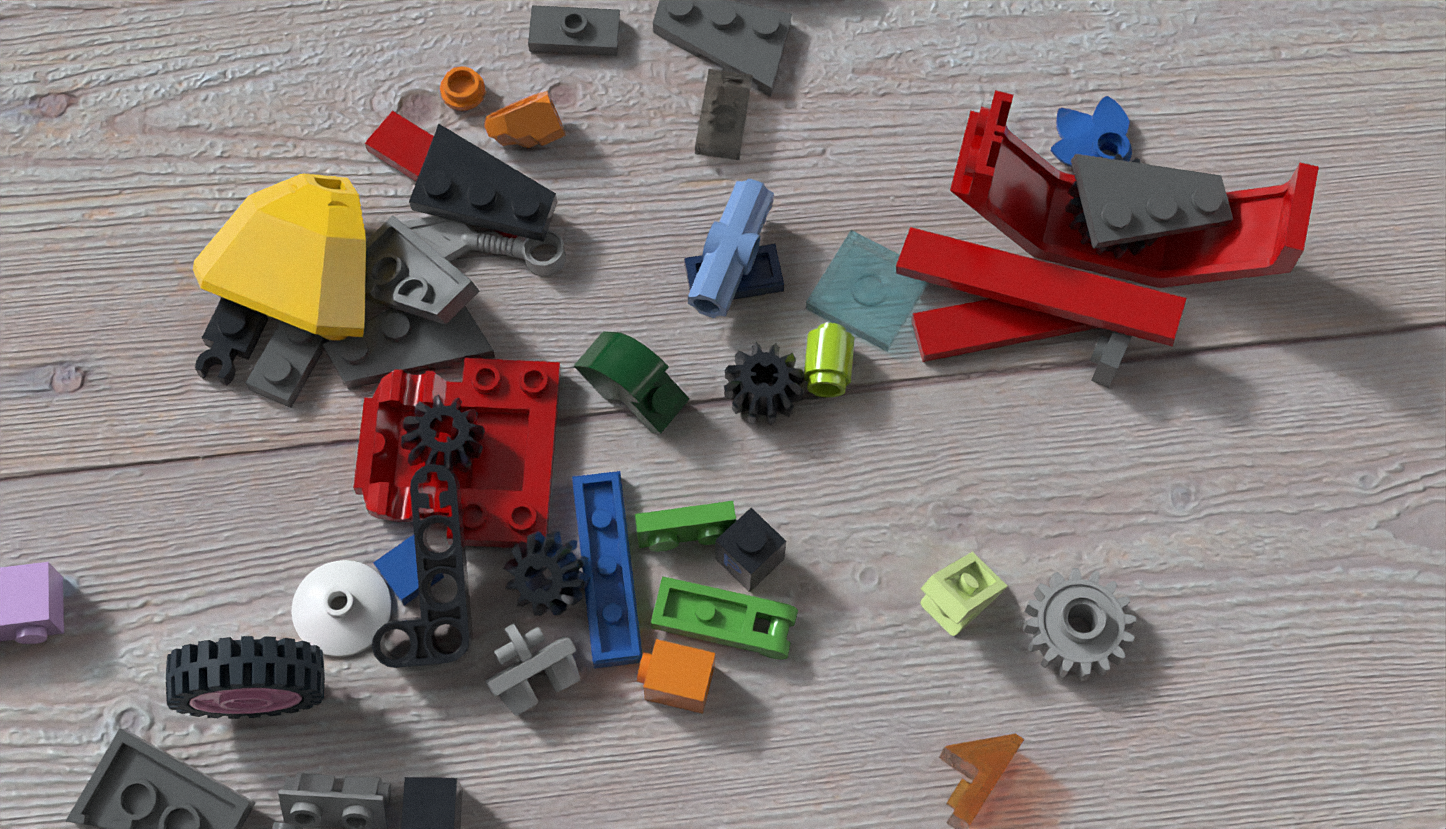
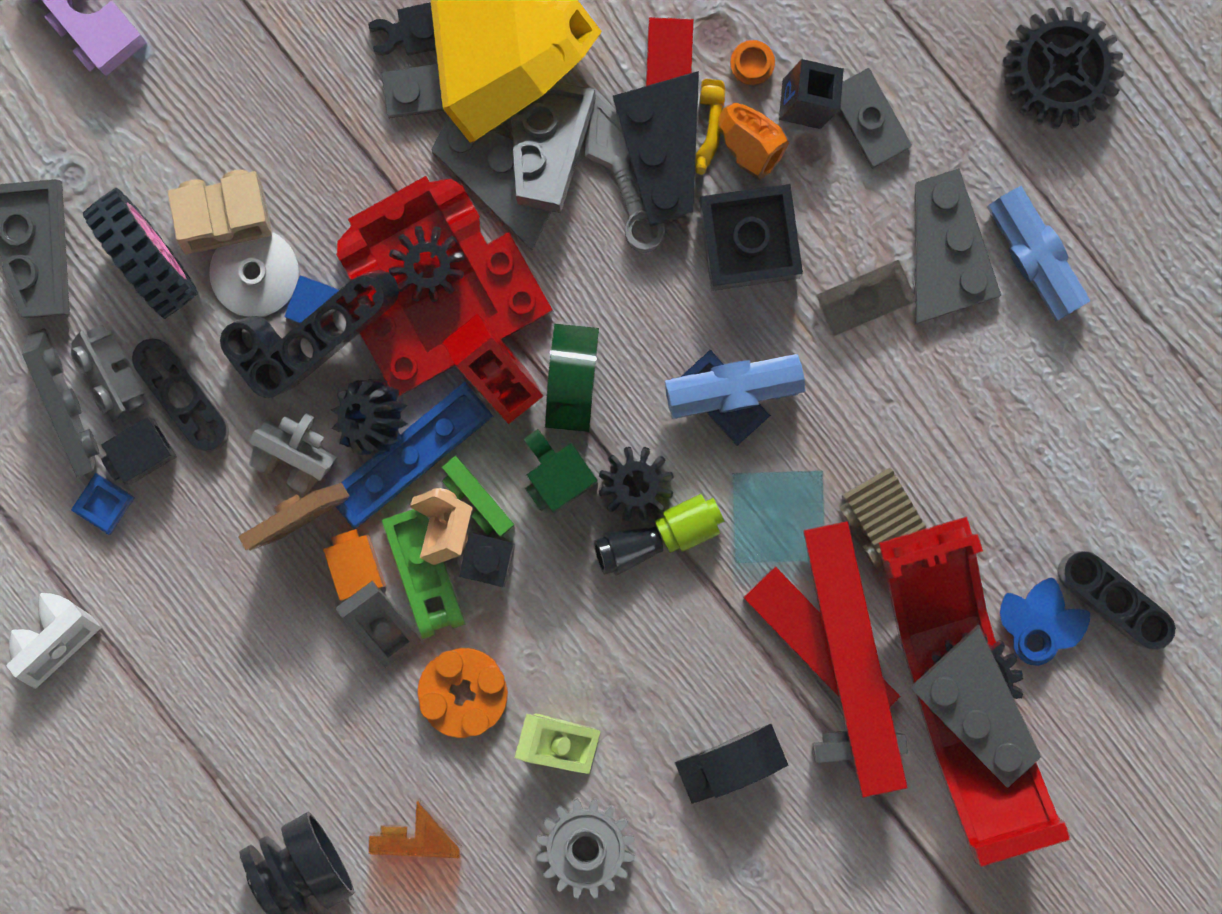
camera: 60 degrees right, 20 degrees up
(266, 592) = (219, 212): none -> tan brick
(367, 732) = (151, 375): none -> black beam
(473, 133) = (711, 94): none -> yellow piece
(522, 50) = (811, 94): none -> black brick
(577, 432) = (492, 368): none -> red brick
(592, 691) = (293, 515): none -> medium nougat plate
(610, 163) = (750, 237): none -> black brick
(692, 560) = (446, 527): none -> light nougat bracket
(715, 434) = (559, 476): none -> dark green brick
(748, 681) = (378, 624): none -> dark grey plate
(817, 428) = (626, 549): none -> black cone
(856, 680) = (439, 704): none -> orange plate
(923, 200) = (881, 512): none -> dark tan brick
(1075, 450) = (732, 764): none -> black brick
(1121, 53) = (1137, 606): none -> black beam

